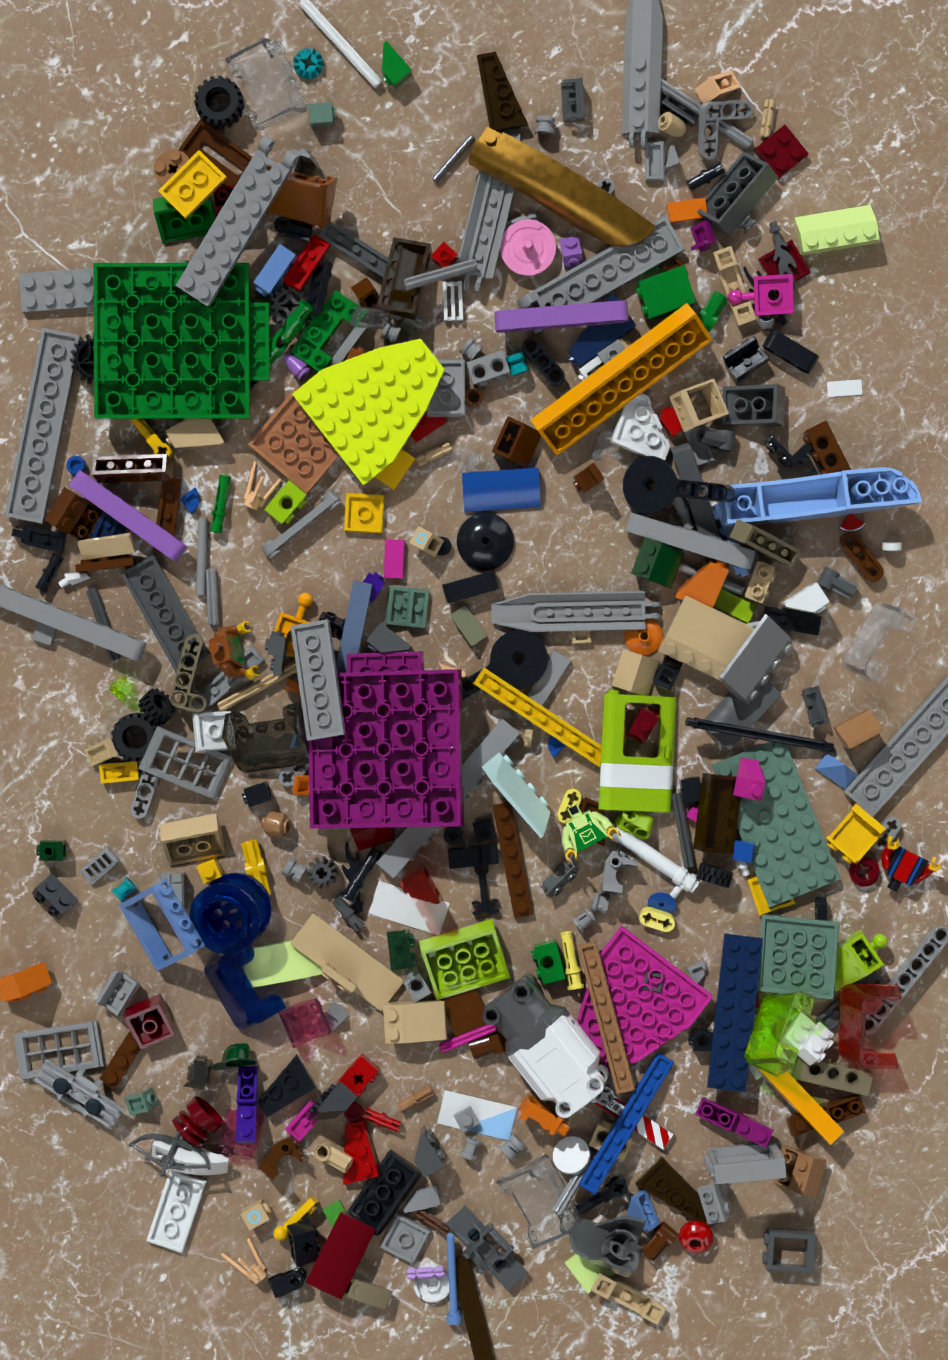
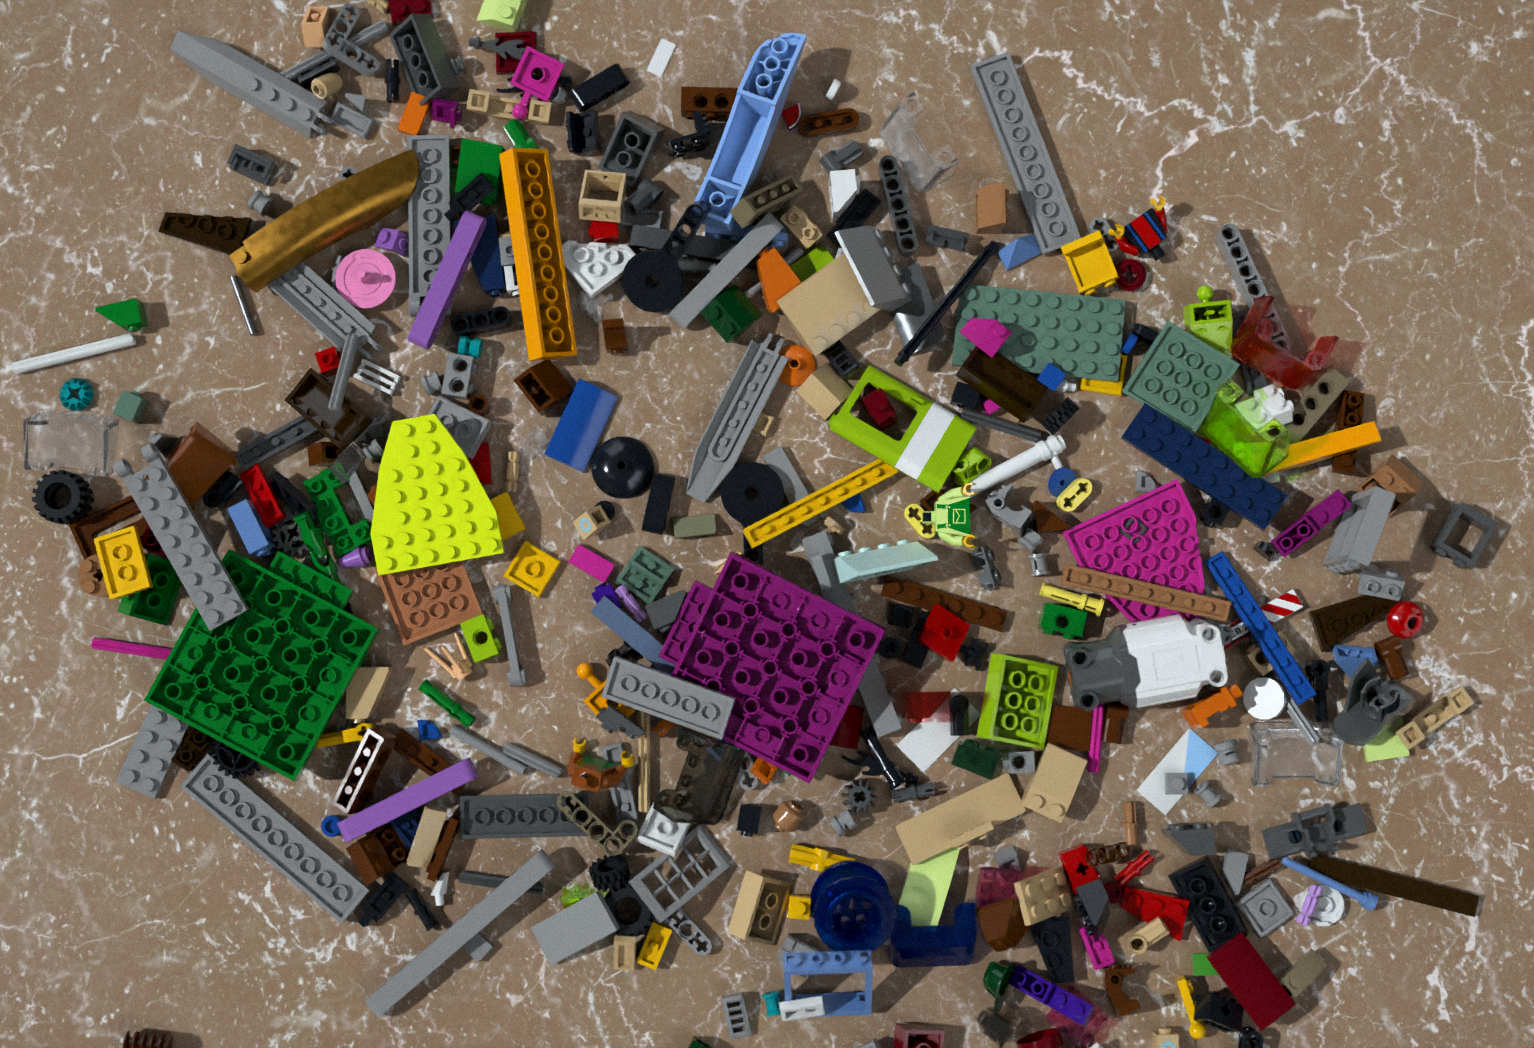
camera: 60 degrees left, 5 degrees down
(75, 320) = (192, 750): none -> dark brown slope
(99, 702) = (575, 927): none -> light grey tile
(129, 227) = (130, 648): none -> dark pink axle
(132, 914) = (802, 1008): none -> white tile
(282, 1039) = (1002, 924): none -> reddish brown slope
(321, 1059) = (1043, 895): none -> tan plate
(378, 607) = (630, 603): none -> lavender axle
(383, 1095) = (1112, 855): none -> reddish brown piece
(427, 918) = (958, 717): none -> black piece
(478, 753) = (821, 573): none -> light grey beam
(487, 872) = (943, 633): none -> red plate
(623, 906) = (1045, 520): none -> reddish brown slope
(640, 297) = (470, 196): none -> black hinge
(693, 1095) = (1263, 549): none -> black tile
(806, 900) = (1129, 343): none -> blue tile
(829, 647) = (899, 196): none -> dark grey beam

